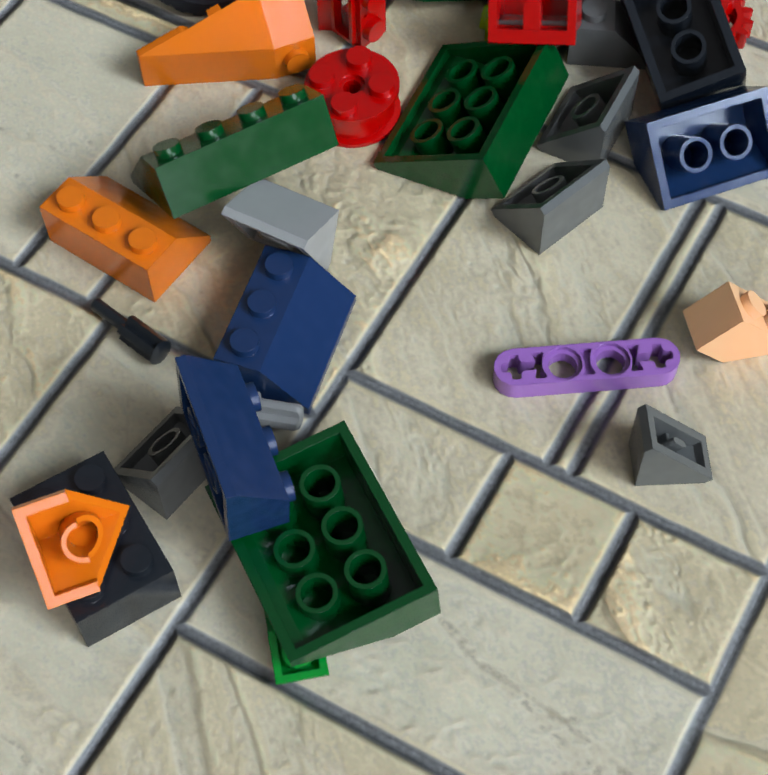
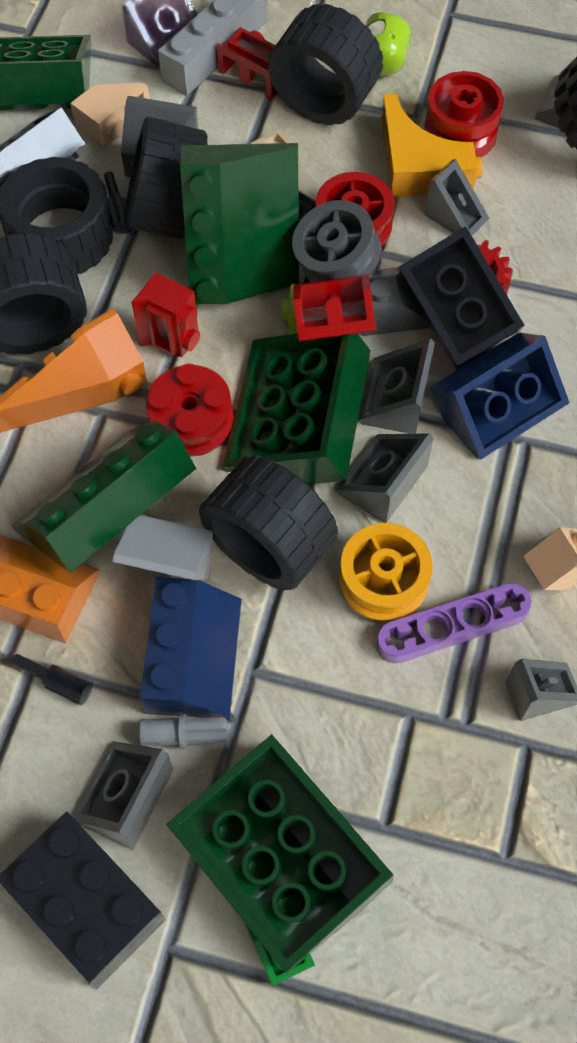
camera: 15 degrees left, 5 degrees up
(69, 542) = (67, 918): orange slope -> none
(233, 446) = (188, 790): dark blue slope -> none
(402, 212) = (269, 522): none -> black tyre
(520, 295) = (385, 572): none -> light orange wheel

